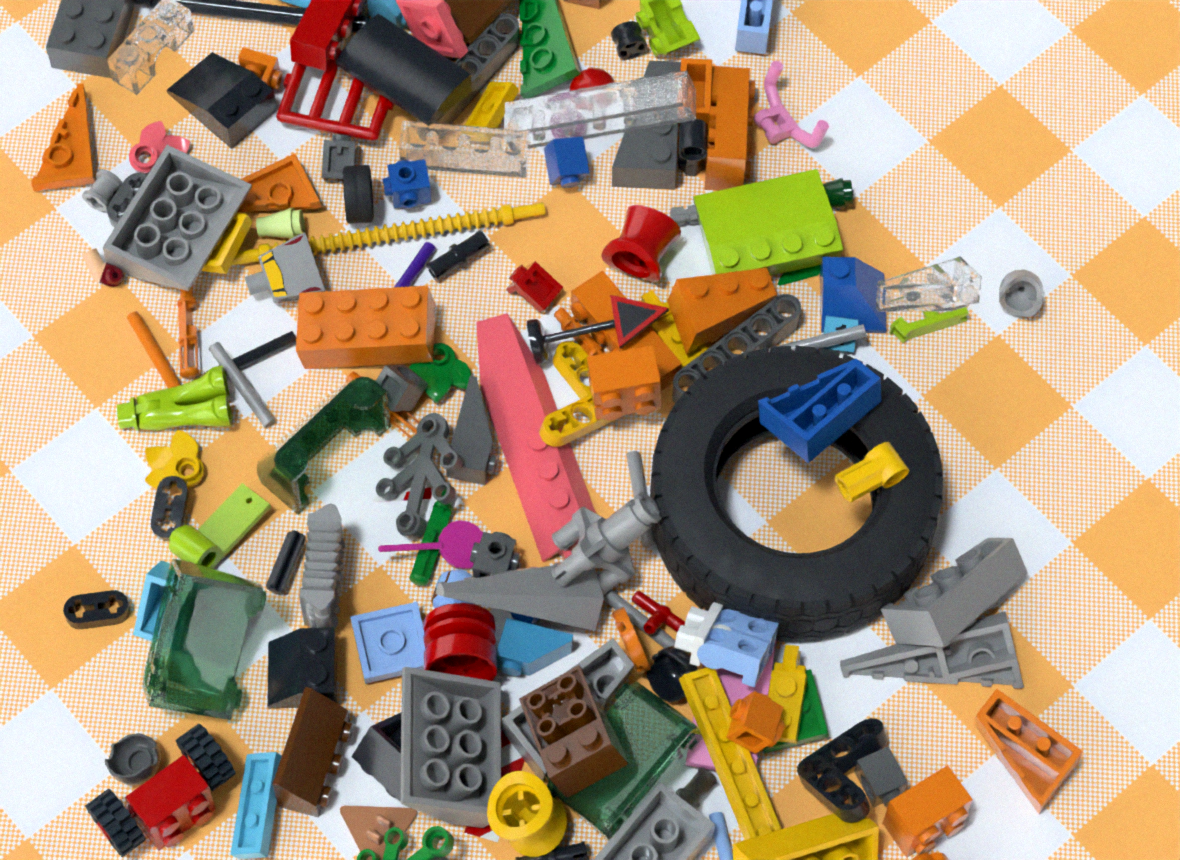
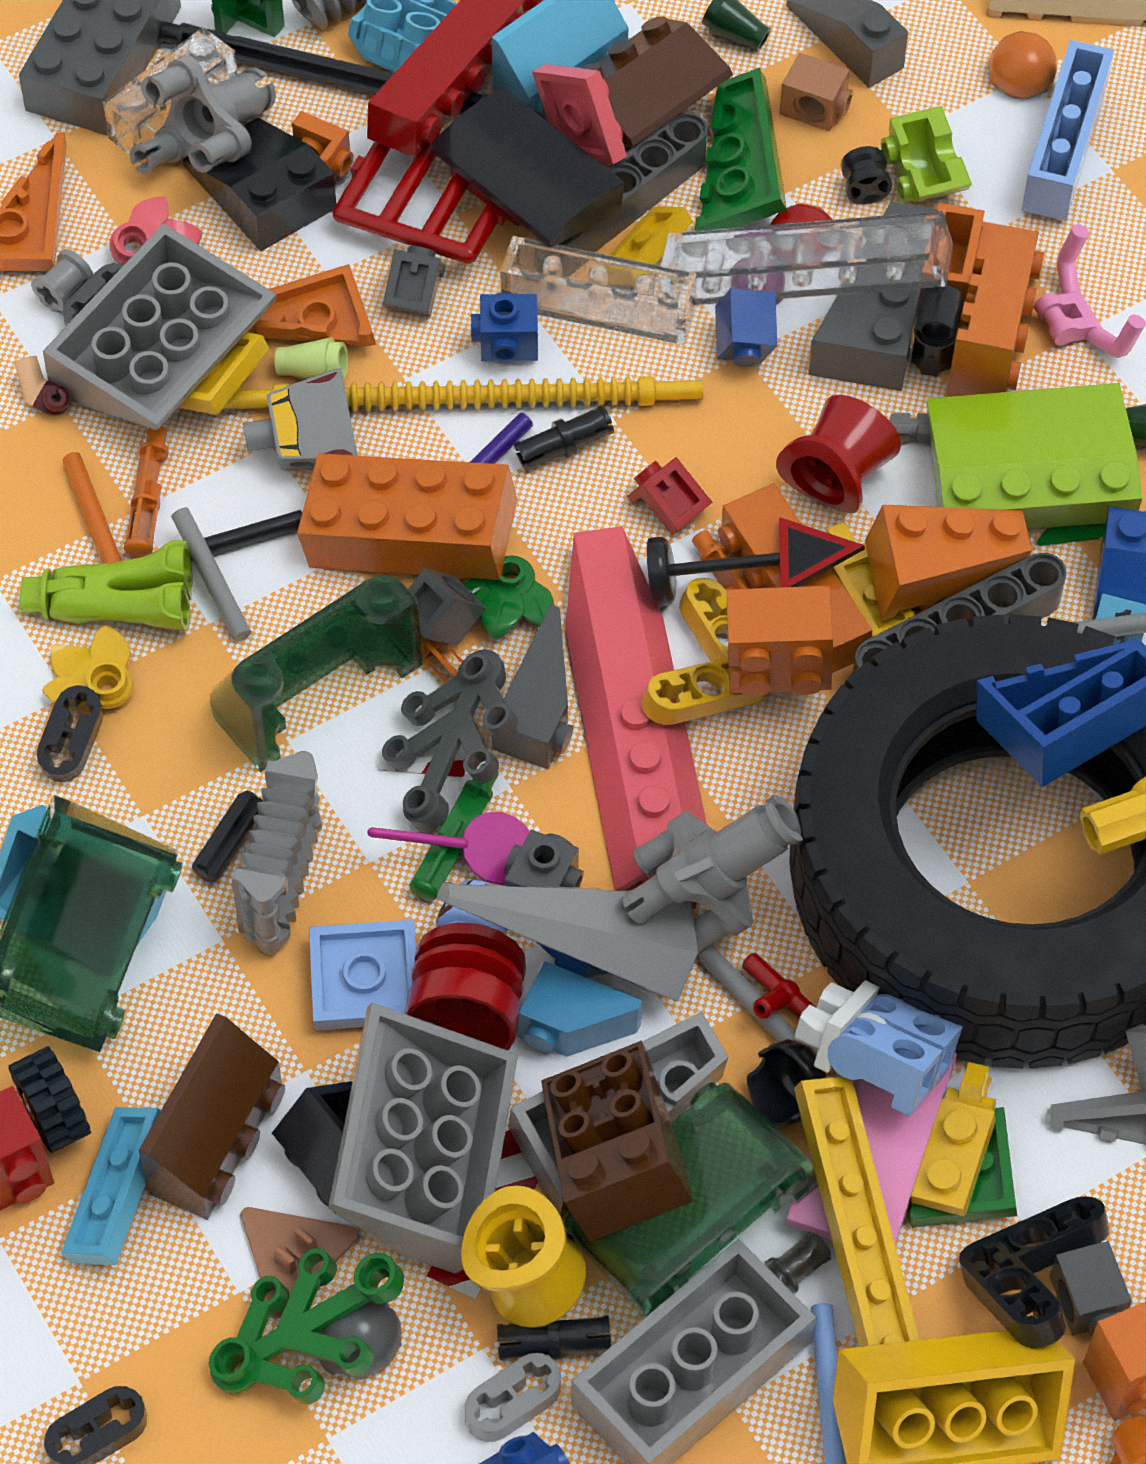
camera: 10 degrees right, 5 degrees down
(177, 61) = (202, 116): none -> light grey wheel
(221, 530) = (142, 775): lime door -> none
(301, 661) = (225, 975): black slope -> none
(358, 194) = (431, 331): black tyre -> none
(630, 640) = (729, 1022): orange tile -> none
(638, 486) = (779, 785): light grey bar -> none
(755, 722) = (904, 1170): orange brick -> none

